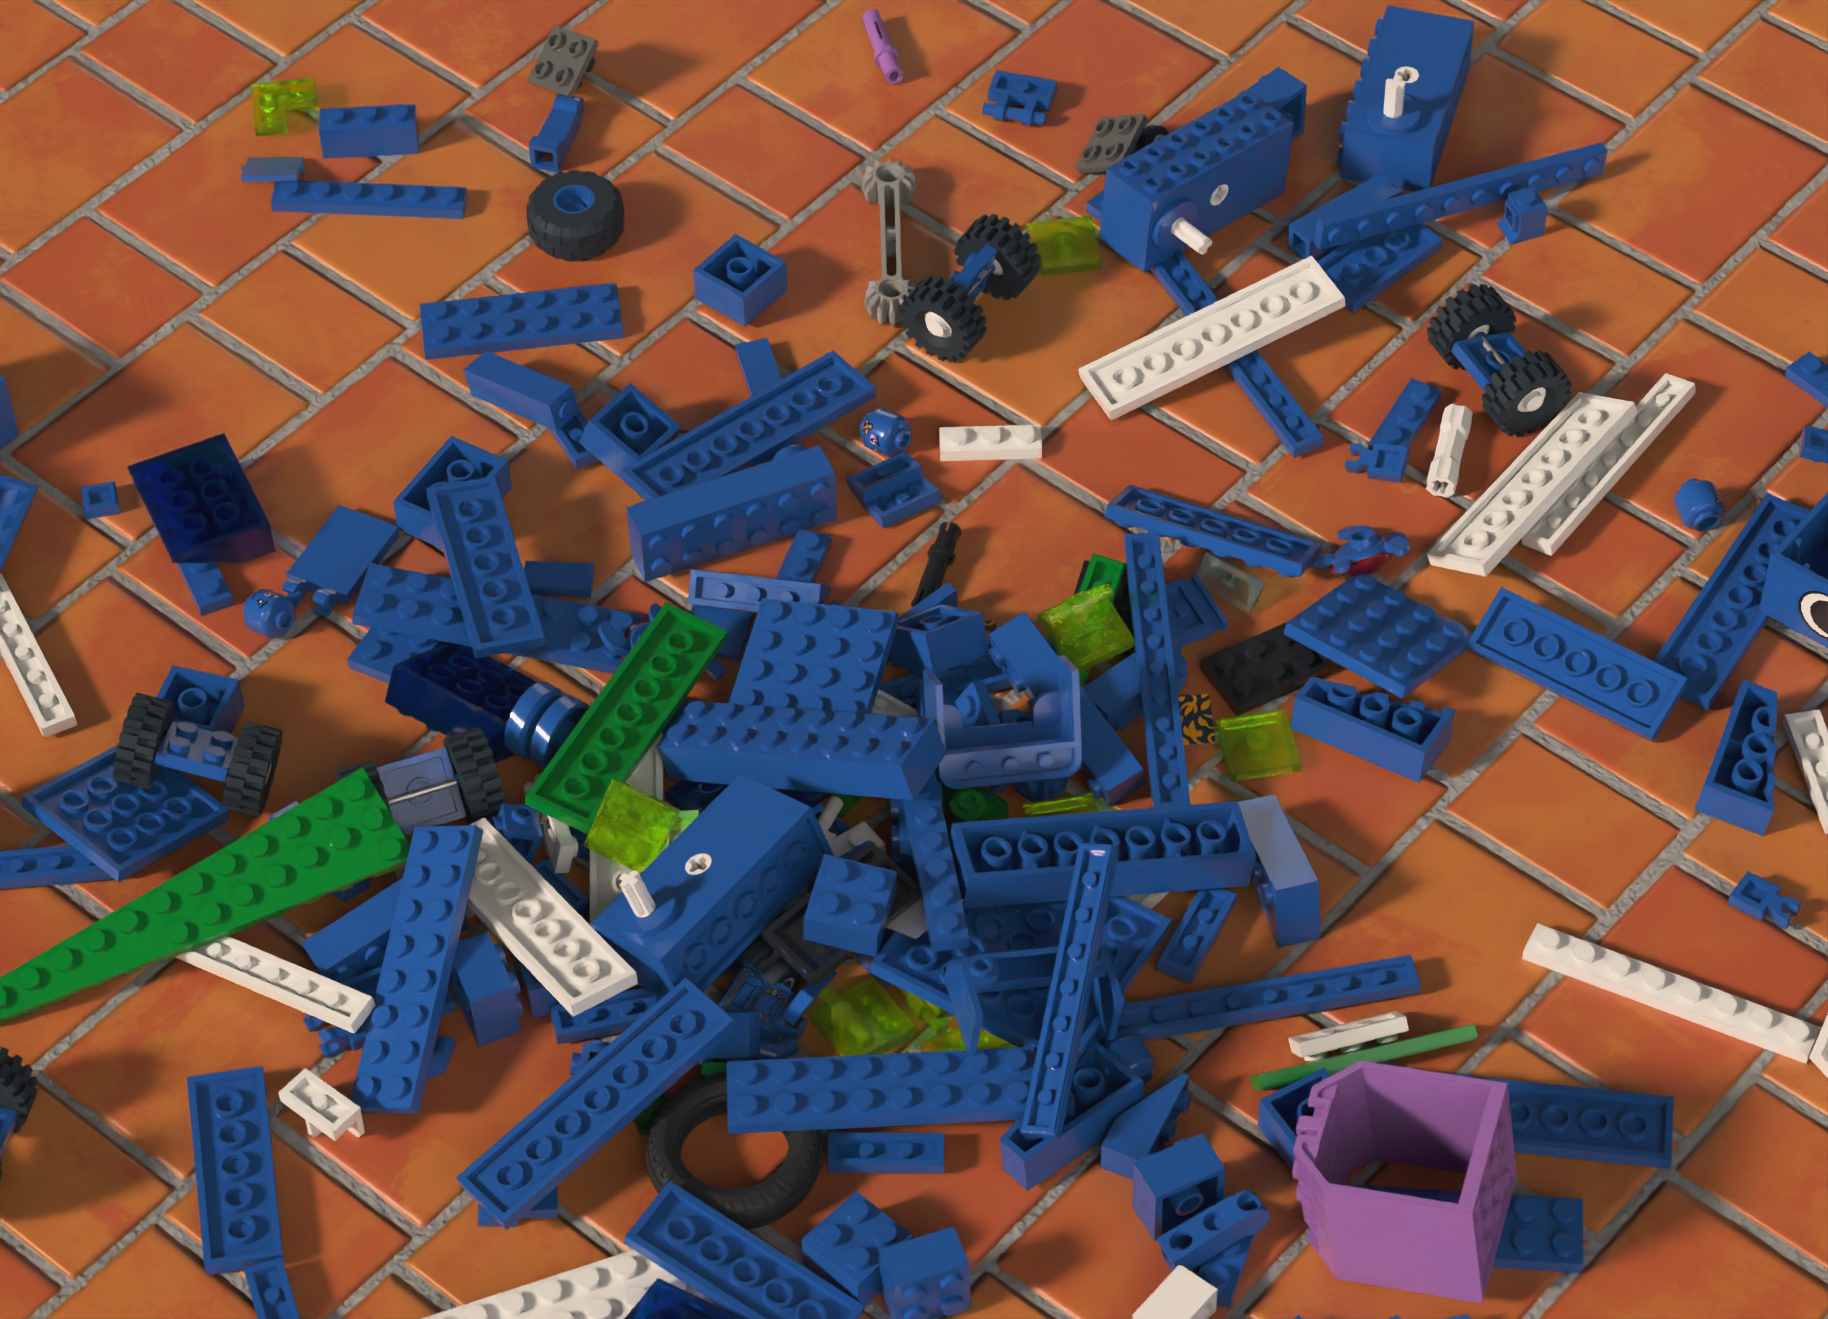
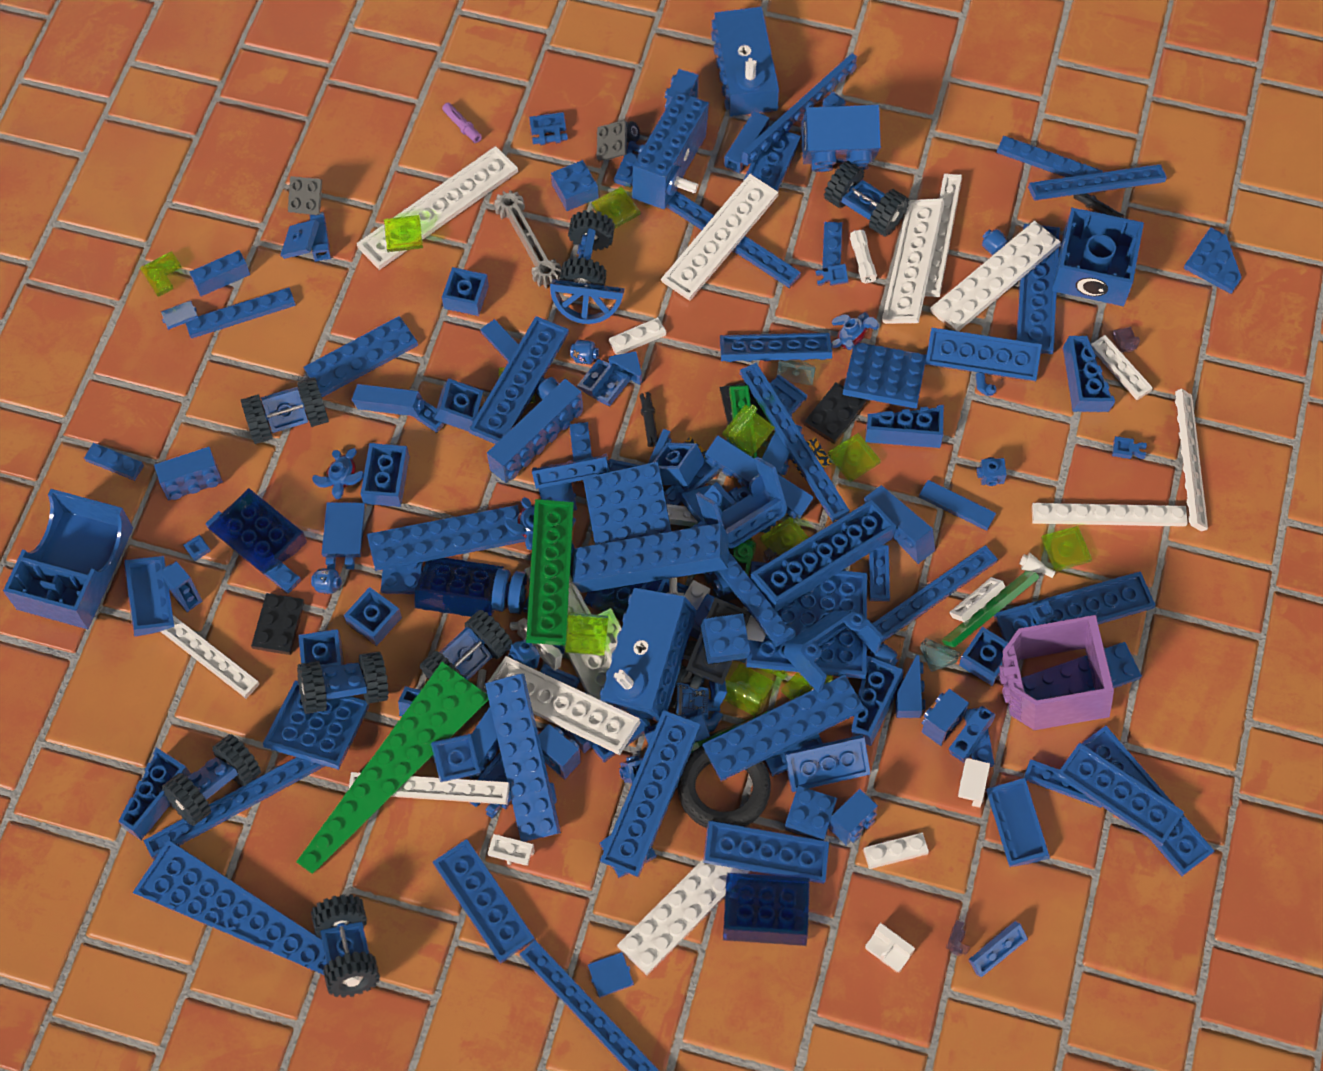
camera: 25 degrees left, 15 degrees up
(34, 532) = (181, 586): none -> blue brick
(49, 337) = (114, 461): none -> blue plate
(146, 385) = (188, 473): none -> blue brick
(161, 640) = (278, 624): none -> black plate
(308, 929) = (455, 758): none -> blue plate
(309, 687) = (373, 616): none -> blue brick
(347, 347) = (284, 410): none -> plate
(383, 471) = (340, 473): none -> blue animal
(485, 567) = (430, 513): blue plate -> none
(522, 123) = (299, 239): none -> blue plate
(560, 578) = (462, 500): blue tile -> none
(575, 215) = (358, 284): black wheel -> none
(689, 165) = (403, 233): none -> clear neon green plate
(771, 152) = (445, 202): none -> white plate
(886, 313) = (585, 289): none -> blue window
(933, 1180) = (827, 763): none -> blue plate
(948, 473) = (628, 364): none -> blue slope
(1014, 187) = (574, 185): none -> blue brick
(1069, 991) = (856, 642): blue tile -> none
(1226, 1093) = (938, 655): none -> clear light blue slope
(1399, 880) = (957, 505): none -> blue tile
(1480, 1012) = (1031, 563): none -> white cone
(1488, 846) = (992, 471): none -> blue brick
(1498, 237) = (840, 135): none -> blue brick
(1550, 715) = (982, 386): none -> blue arm
(1560, 1017) = (1066, 548): none -> clear neon green plate
(1663, 555) = (995, 276): none -> white plate

